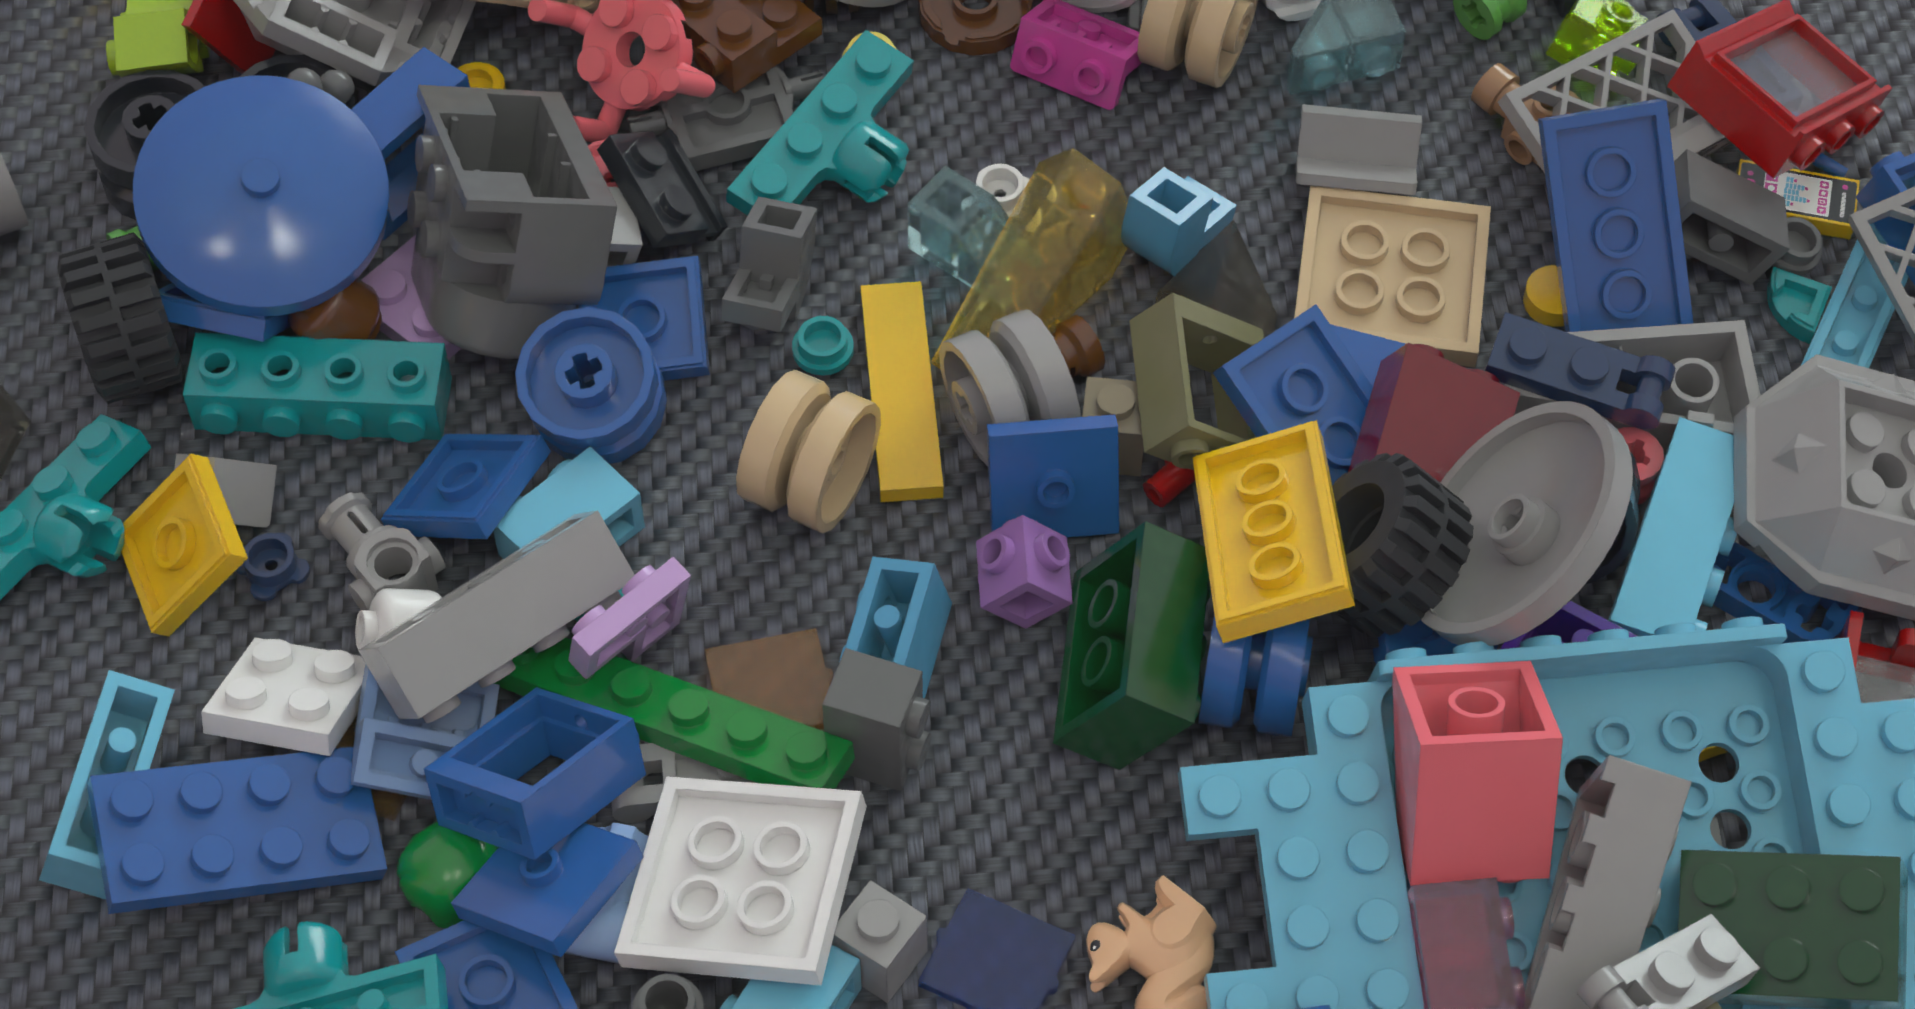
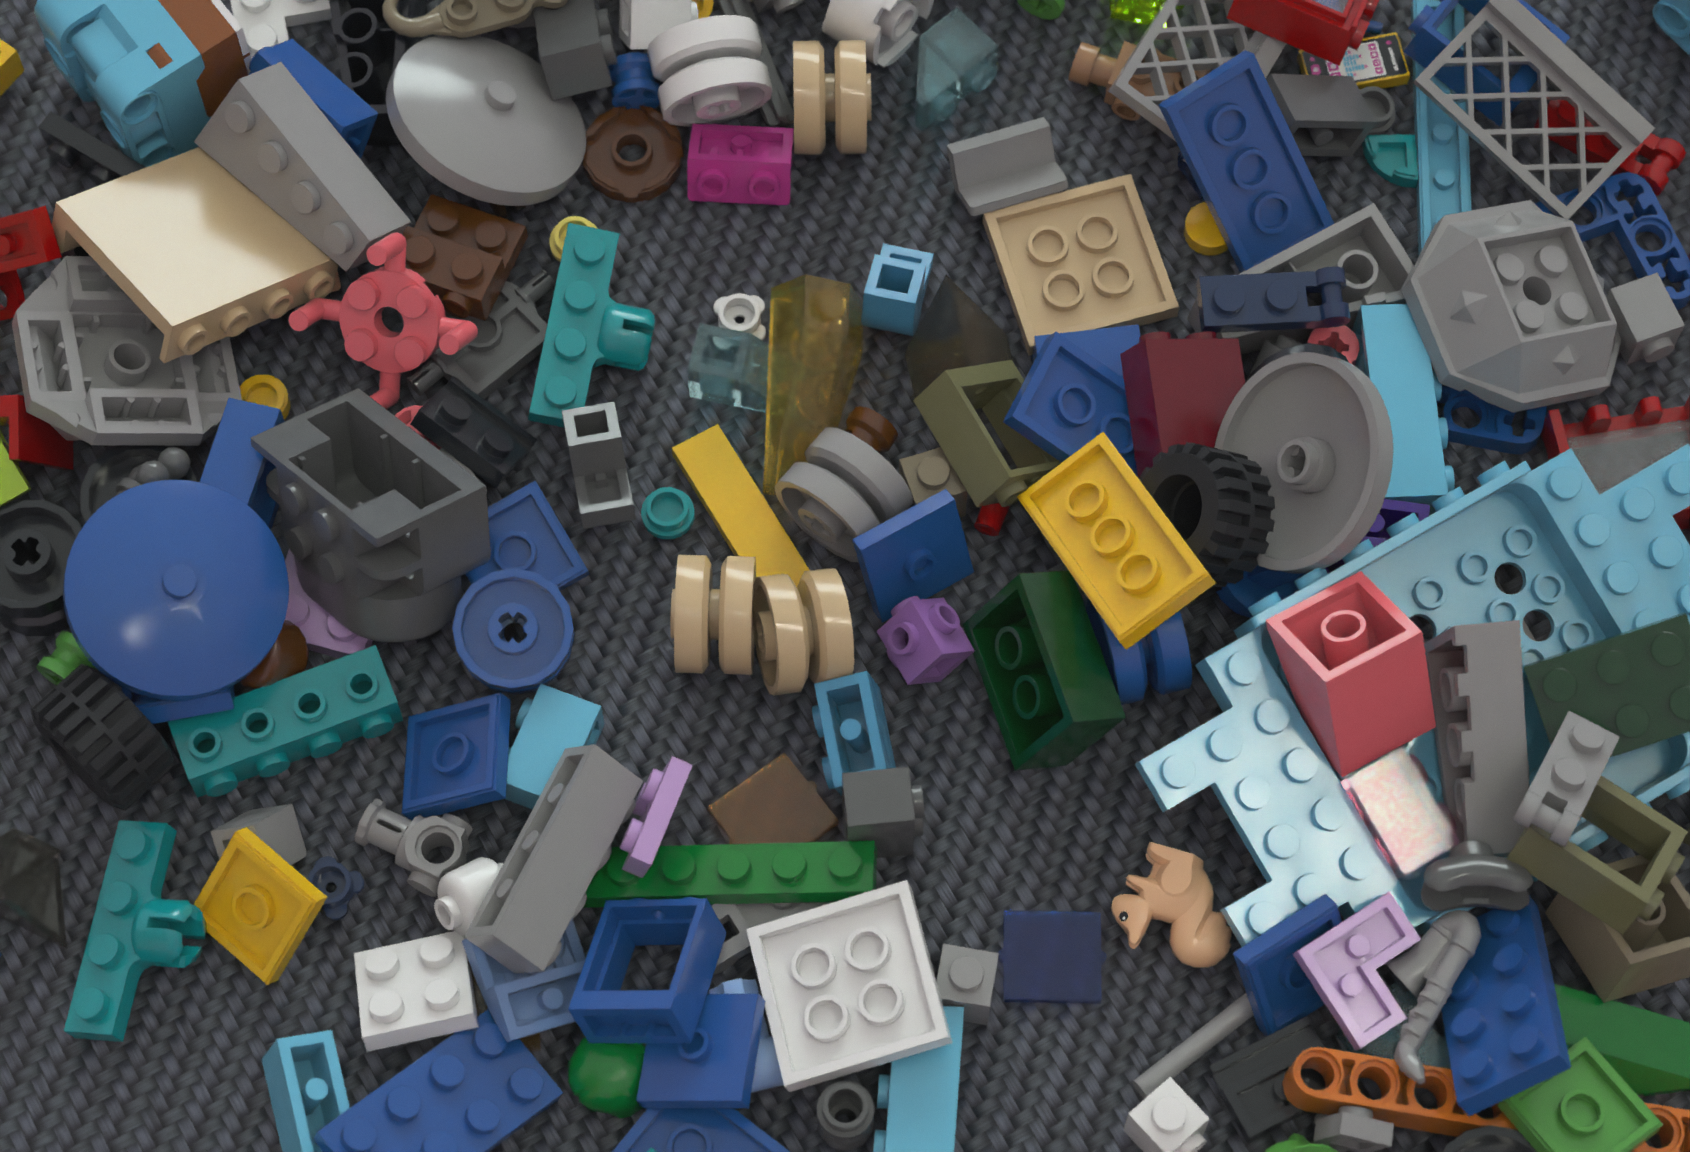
camera: 25 degrees left, 10 degrees up
(888, 501) = (802, 629): none -> tan wheel

